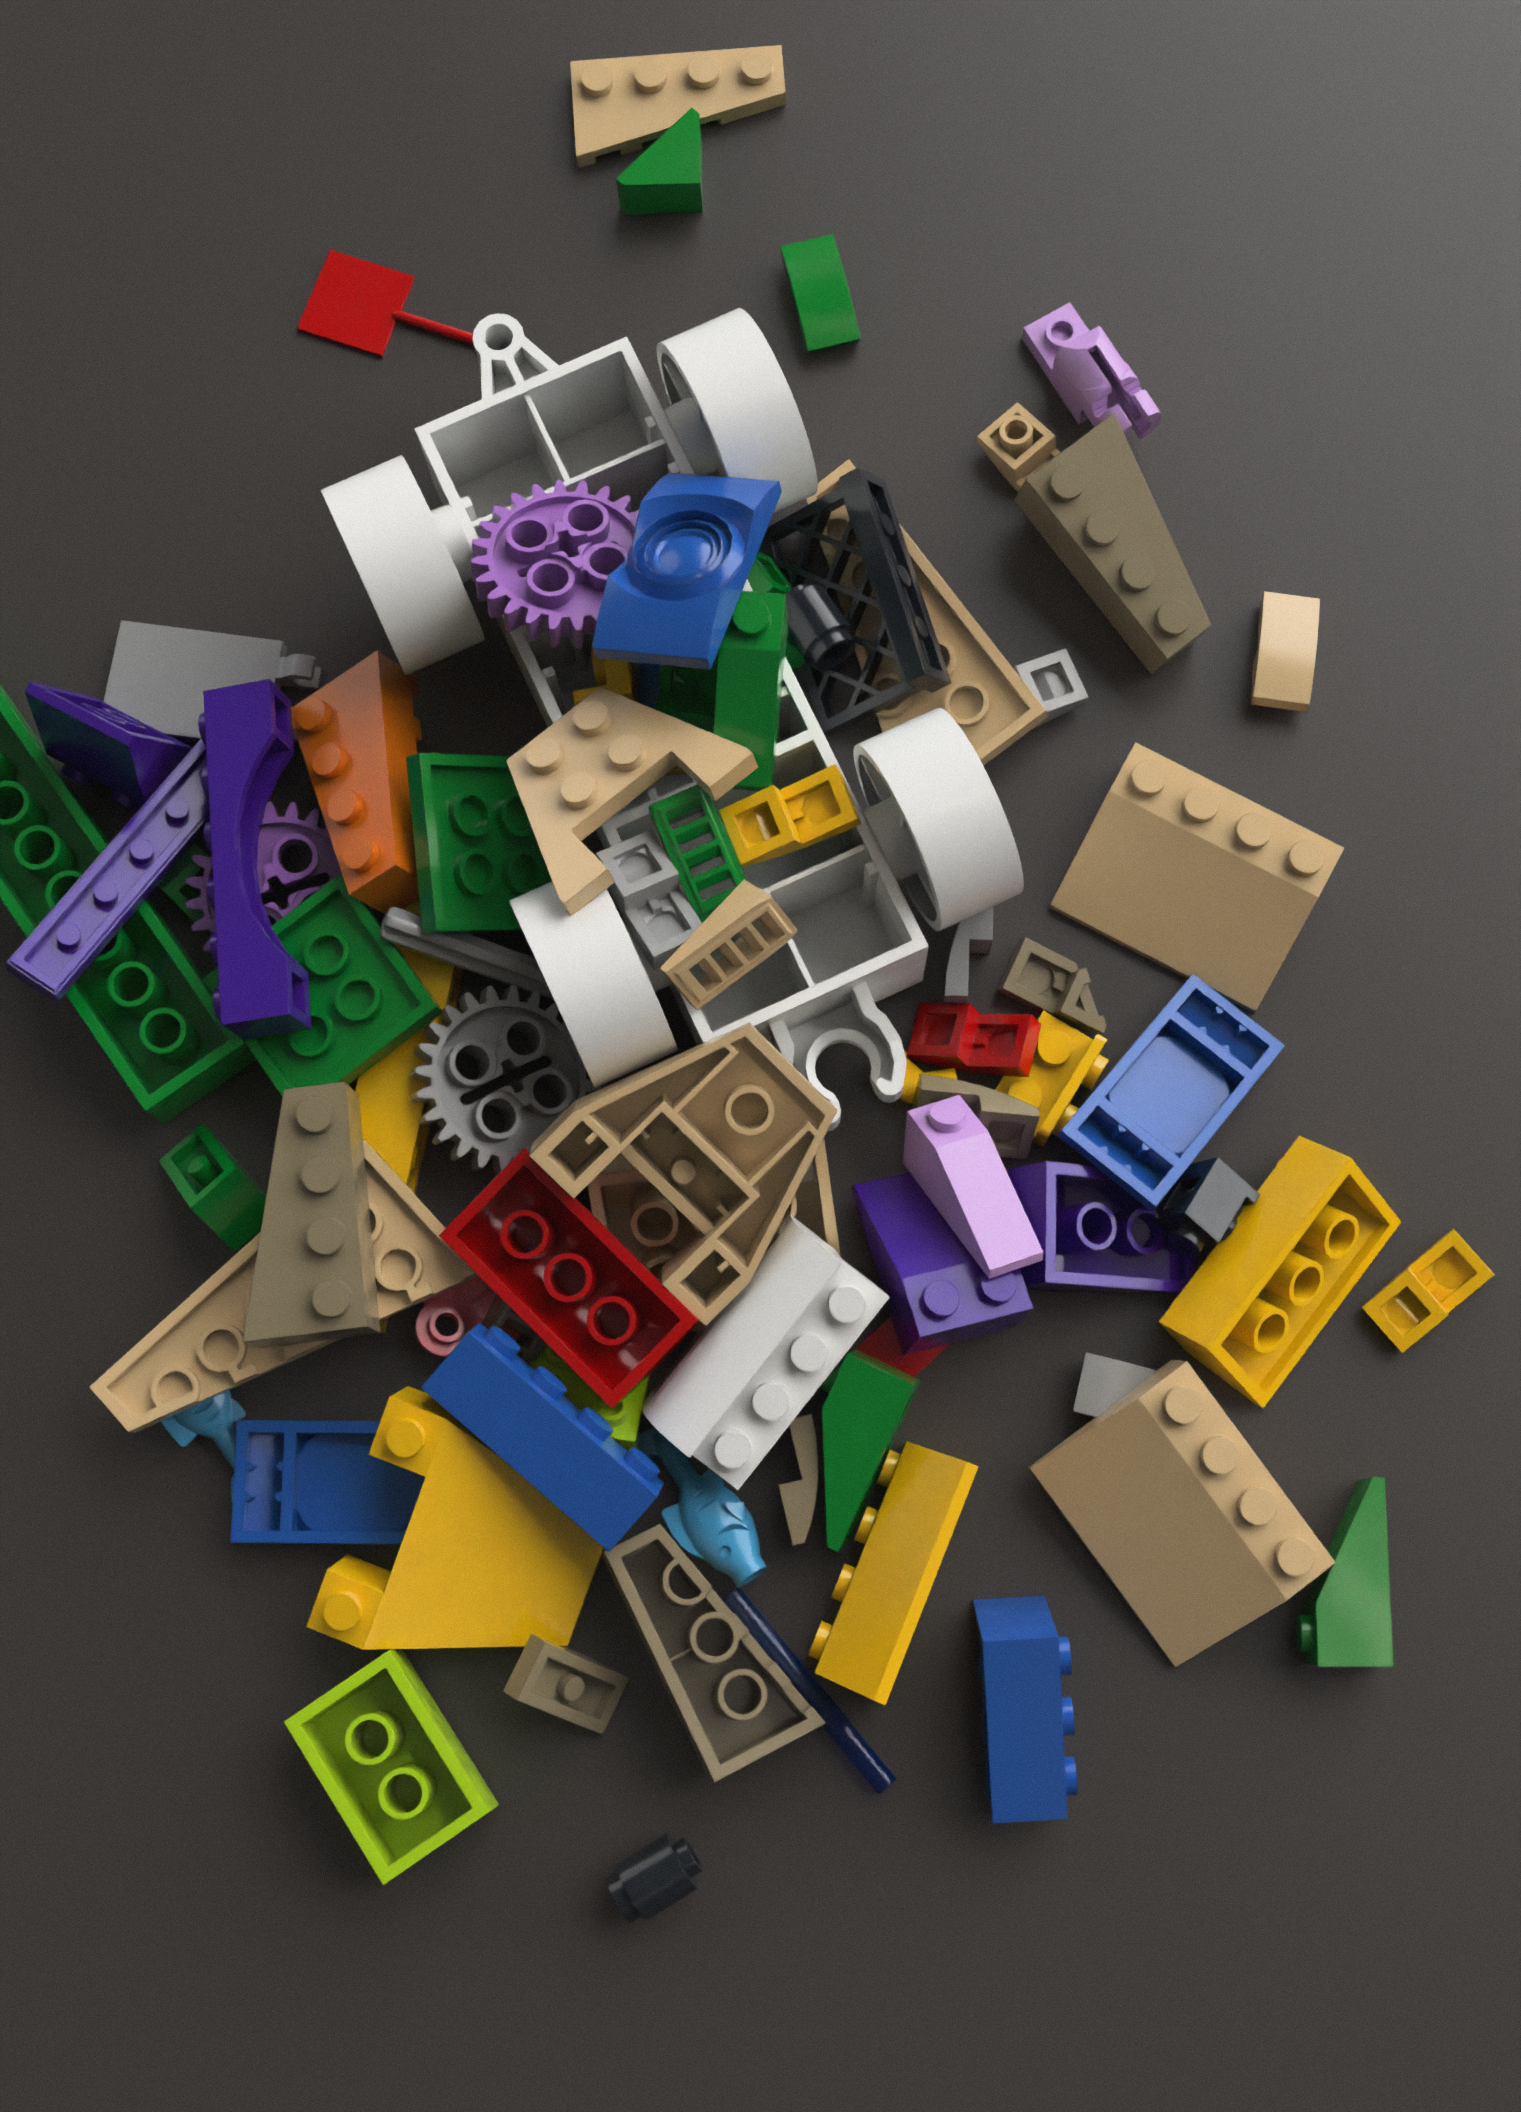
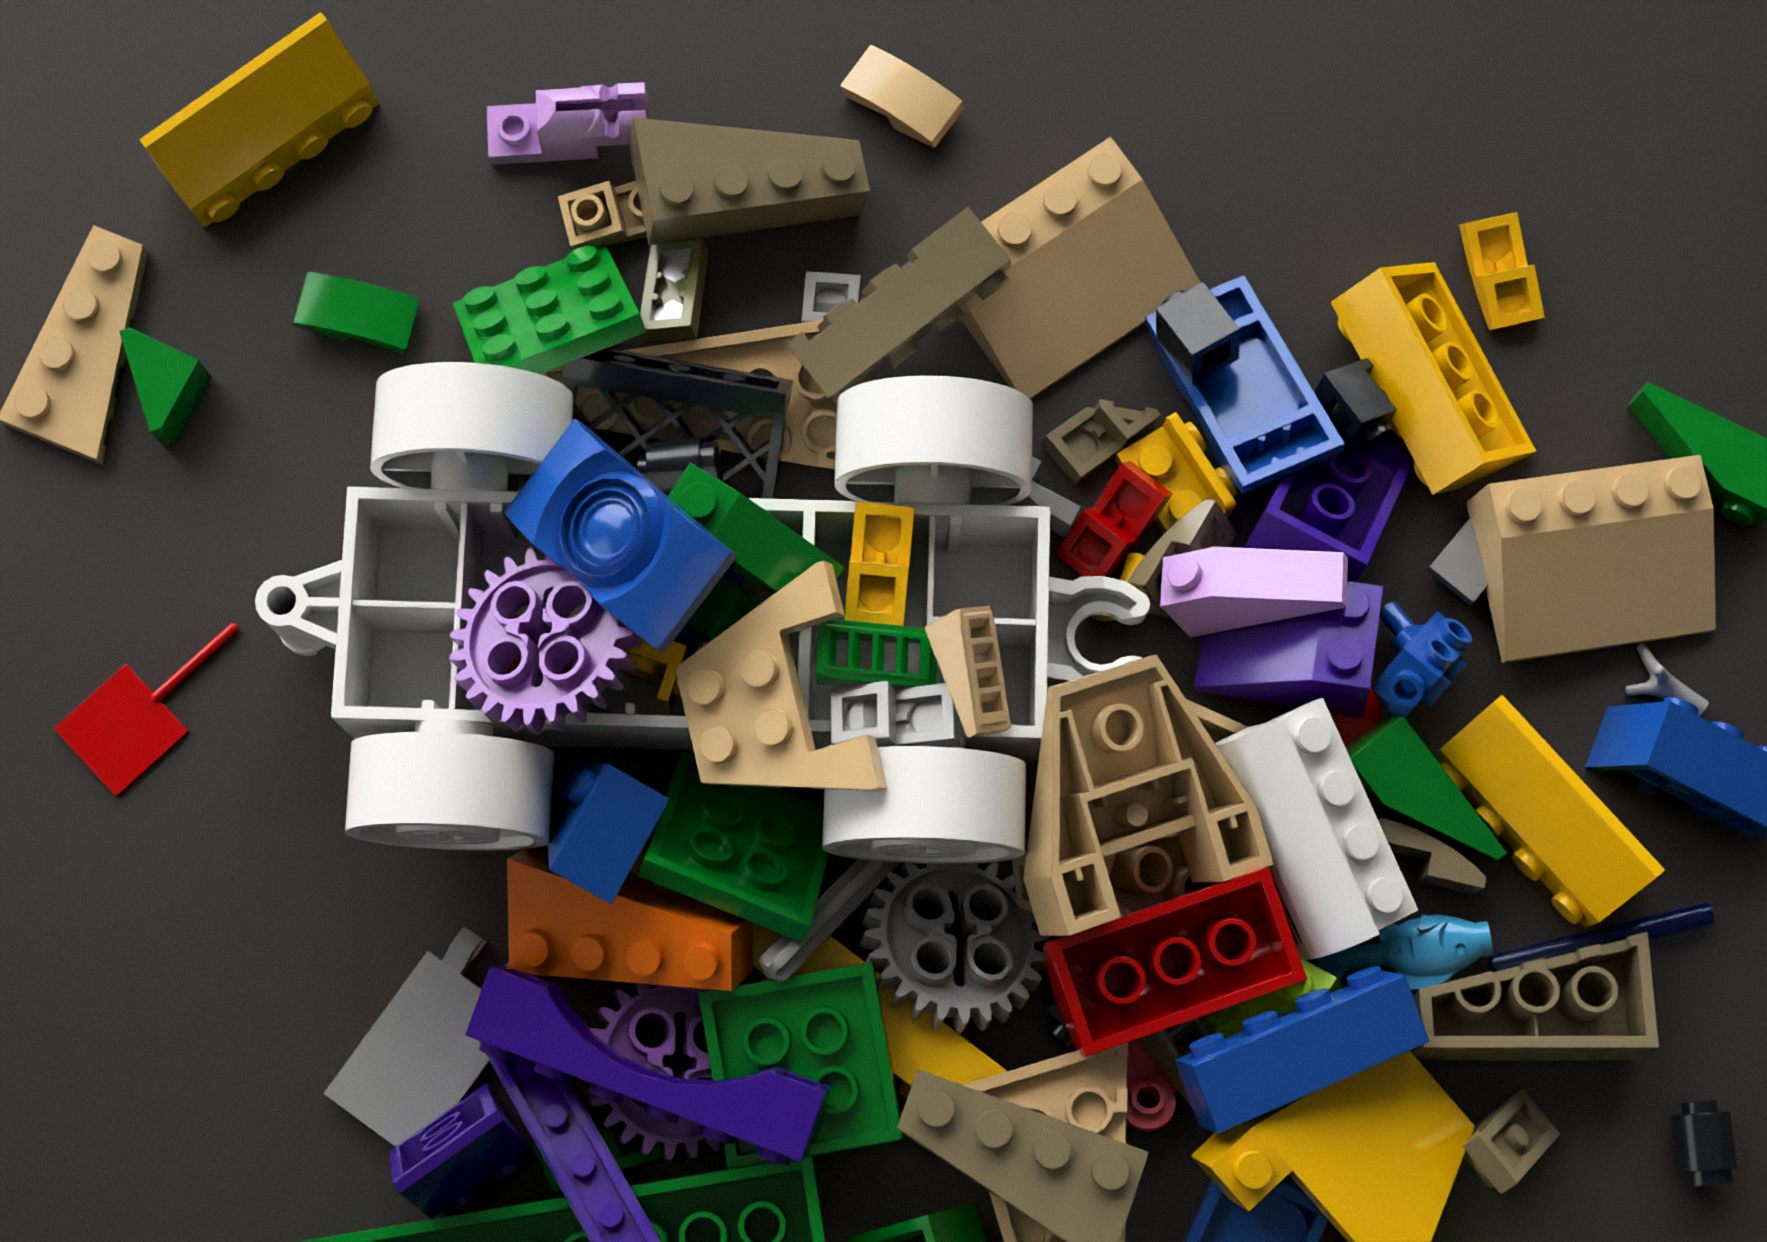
camera: 70 degrees left, 0 degrees up
(443, 710) = (599, 825): none -> blue wedge
(894, 443) = (550, 313): none -> green plate
(945, 120) = (261, 121): none -> yellow slope
(982, 542) = (674, 291): none -> olive piece
(984, 1383) = (1425, 660): none -> blue brick
(1061, 732) = (904, 306): none -> dark tan wedge
(1091, 1642) = (1662, 683): none -> light grey bar
(1194, 1020) = (1197, 332): none -> brick

